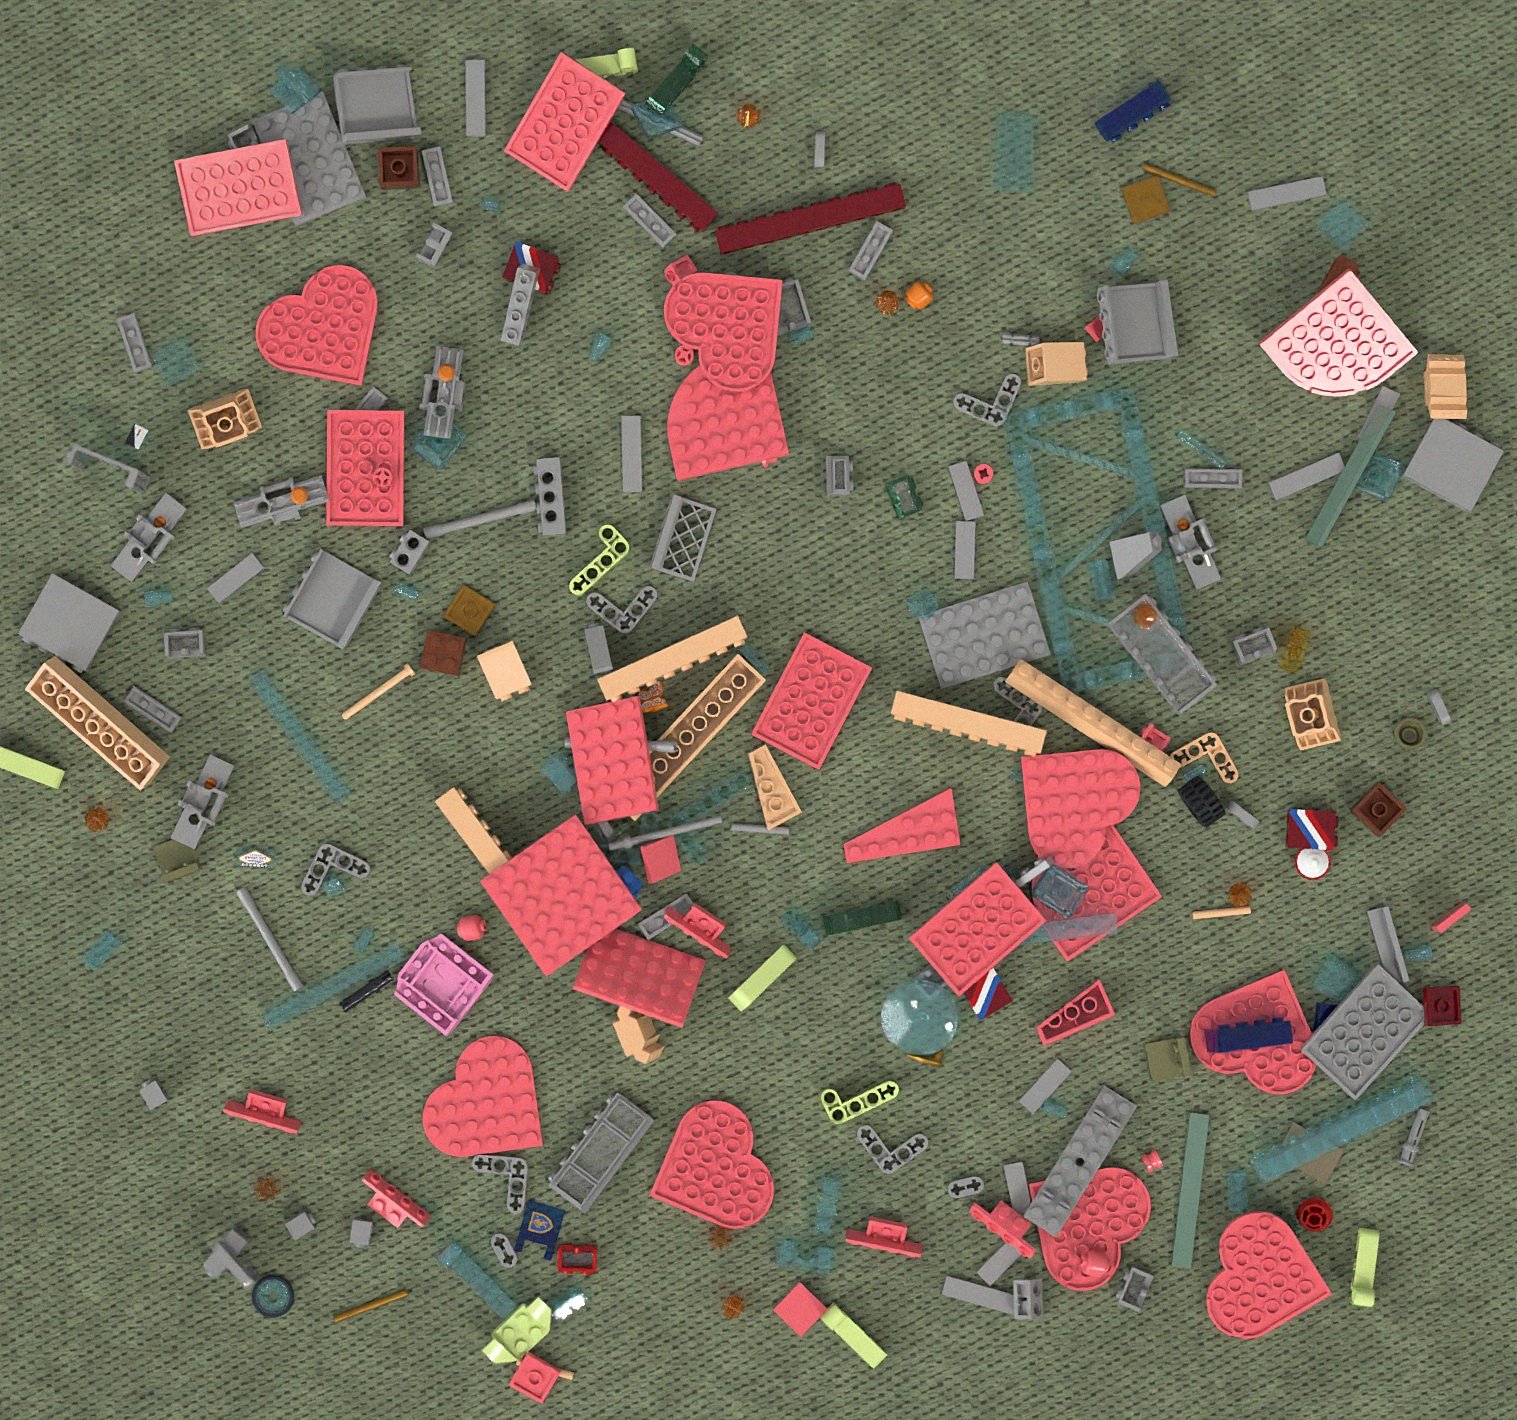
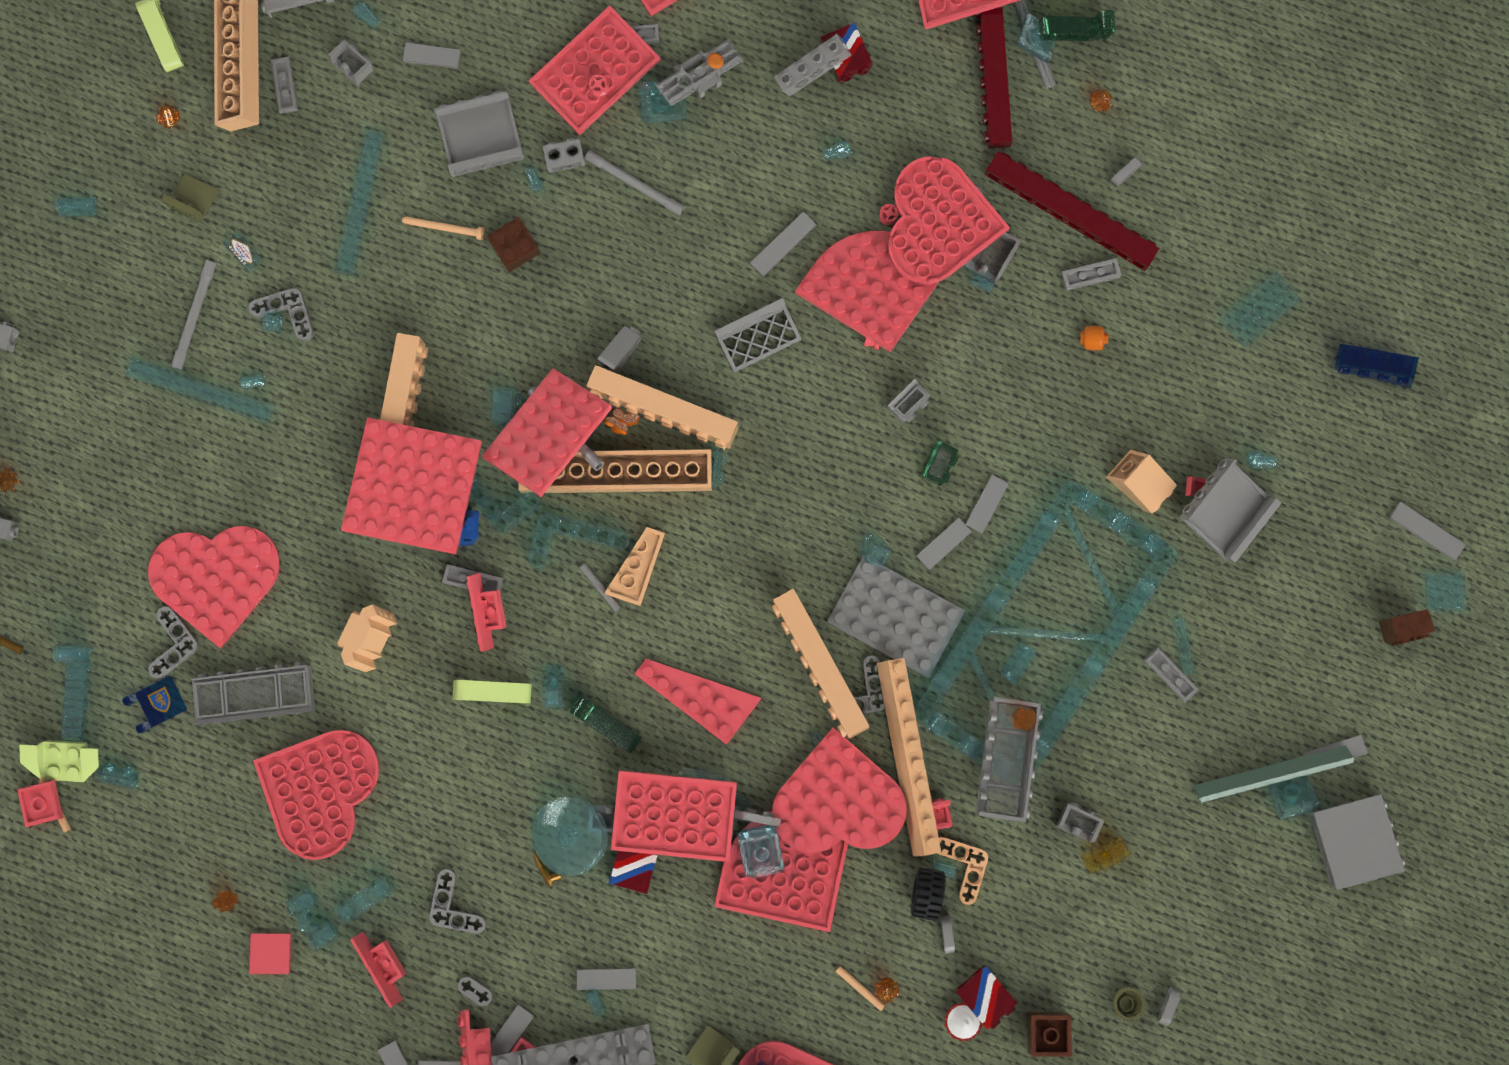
camera: 50 degrees right, 5 degrees down
(212, 780) = (248, 171): light grey piece -> none
(264, 1110) = (62, 424): coral bracket -> none
(285, 507) = (511, 39): light grey piece -> none
(361, 1232) = (35, 576): light grey brick -> none
(366, 991) = (226, 418): black pin -> none
(392, 1203) = (78, 579): coral bracket -> none
(448, 988) = (275, 474): bright pink wedge -> none
(469, 610) = (562, 235): pearl gold tile -> none
(471, 927) = (333, 448): coral head -> none
(500, 1253) = (112, 690): light grey beam -> none
(505, 671) = (541, 297): light nougat slope -> none
(558, 526) = (682, 240): light grey brick -> none
(577, 1258) = (157, 751): red window -> none
(596, 563) = (682, 291): yellowish green beam -> none
(604, 831) = (492, 477): light grey beam -> none
(620, 616) = (659, 343): light grey beam -> none
(628, 841) = (499, 499): light grey bar -> none
(640, 976) = (408, 600): coral plate -> none
(649, 221) = (959, 102): light grey plate -> none
(660, 858) = (509, 535): coral tile -> none
(680, 269) = (946, 151): coral bracket -> none
(723, 1234) = (273, 842): clear orange gear -> none
(811, 701) = (728, 536): coral plate -> none
(853, 1335) = (285, 1012): yellowish green beam -> none
(861, 1098) = (469, 850): yellowish green beam -> none
(887, 302) = (1066, 319): clear orange gear -> none
(985, 475) = (1007, 506): coral wheel -> none
(997, 407) = (1068, 469): light grey beam -> none
(1019, 339) = (1132, 439): light grey axle -> none
(1074, 928) = (743, 888): clear light blue tile -> none
(1080, 1013) = (681, 952): coral wedge -> none
(1134, 552) = (1062, 667): light grey slope -> none
(1145, 199) = (1321, 434): pearl gold tile -> none
(1178, 179) = (1358, 444): pearl gold bar -> none
(1183, 542) = (1103, 699): light grey piece -> none
(1306, 476) = (1240, 742): light grey tile -> none
(1311, 714) = (1071, 914): light nougat slope -> none
(1339, 341) = (1363, 670): plate -> none
(1445, 386) = (1408, 781): light nougat slope -> none

